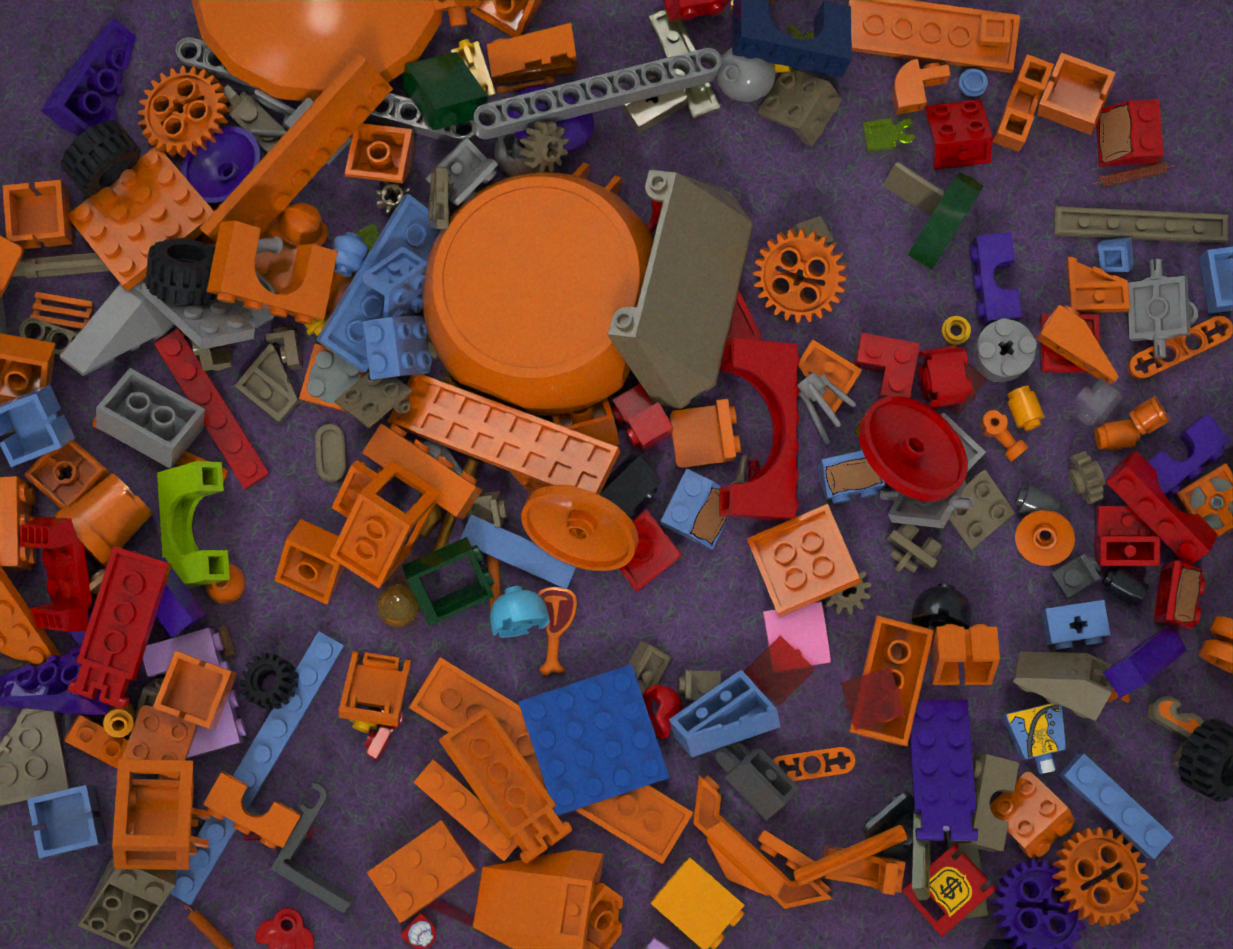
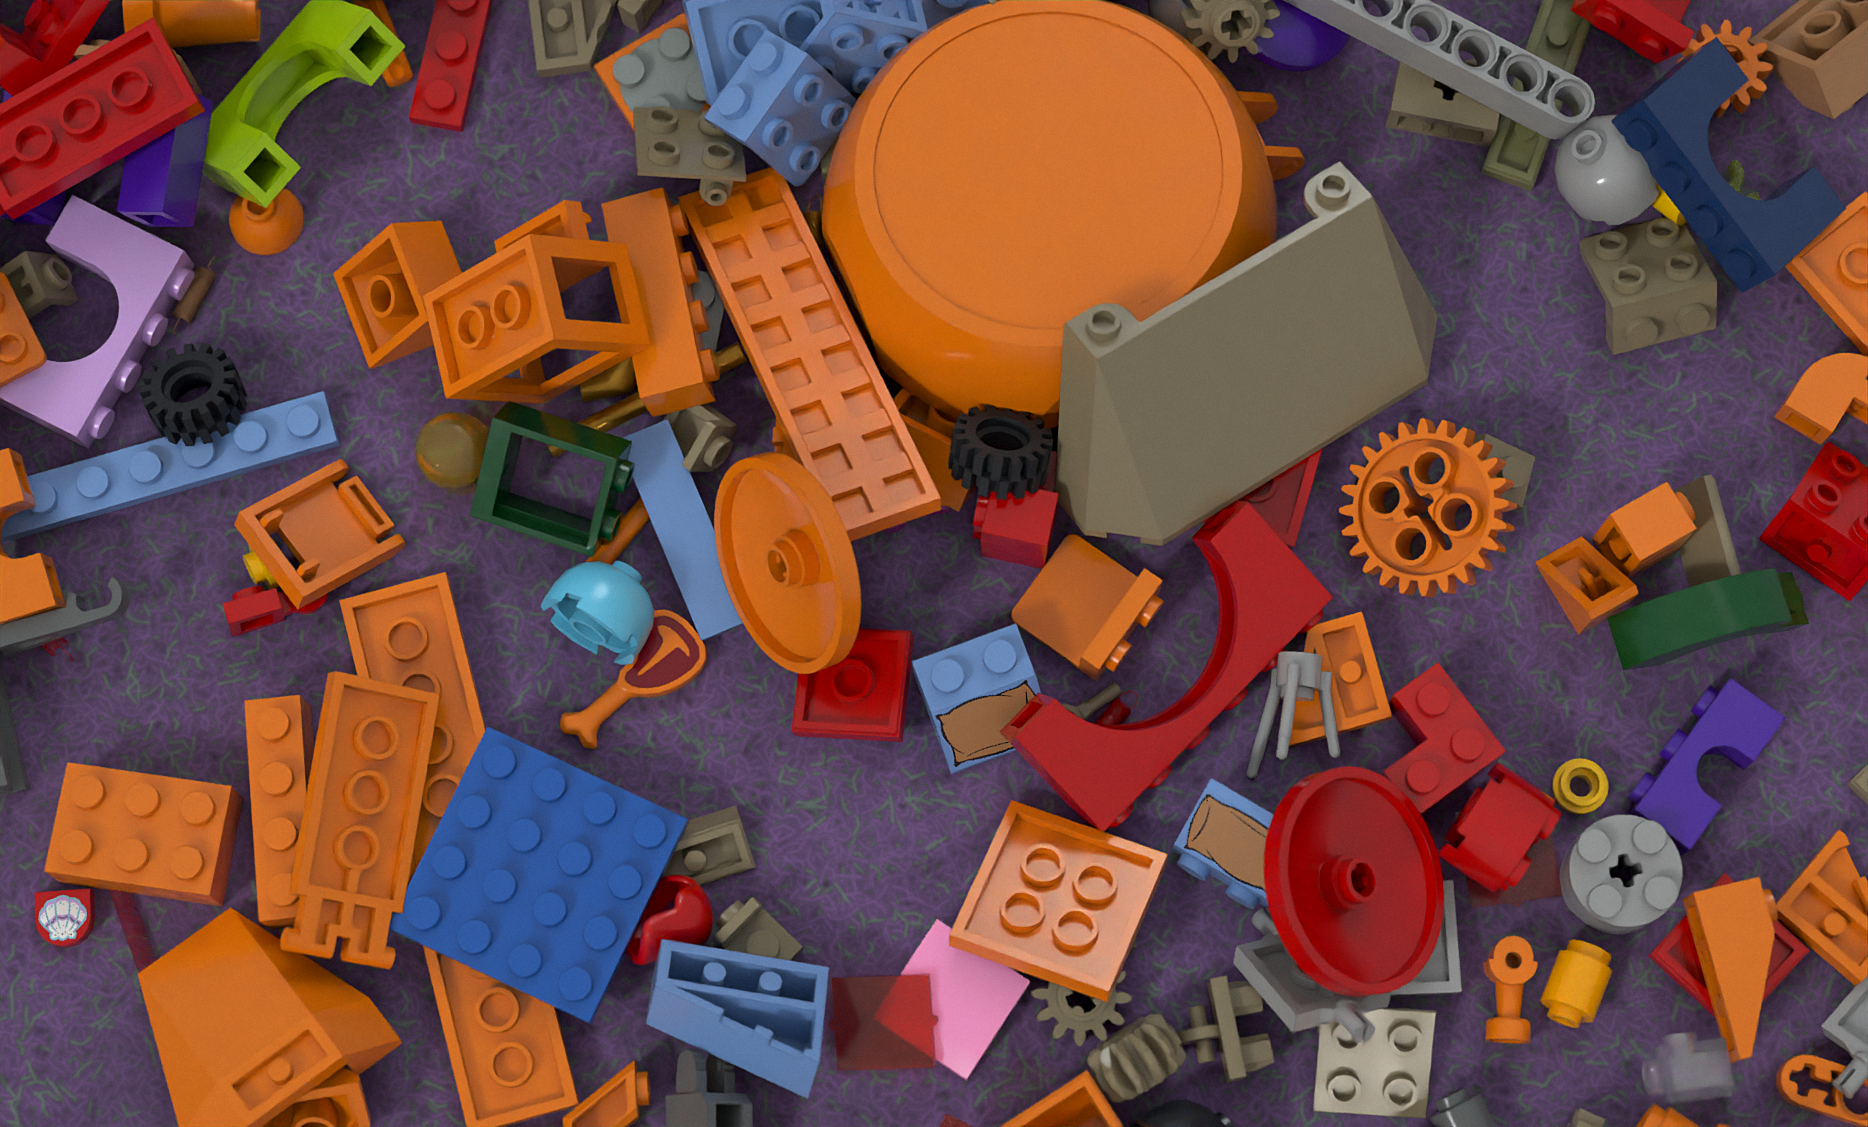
camera: 45 degrees right, 5 degrees down
(195, 689) = (83, 306): orange piece -> none
(330, 453) = (567, 171): dark tan tile -> none
(626, 416) = (1000, 452): none -> black tyre
(630, 484) = (912, 578): black brick -> none
(882, 135) = (1727, 424): clear neon green plate -> none
(886, 248) = (1586, 584): none -> orange slope
(889, 593) = (1136, 1058): none -> dark tan gear
(892, 207) = (1646, 530): none -> orange brick

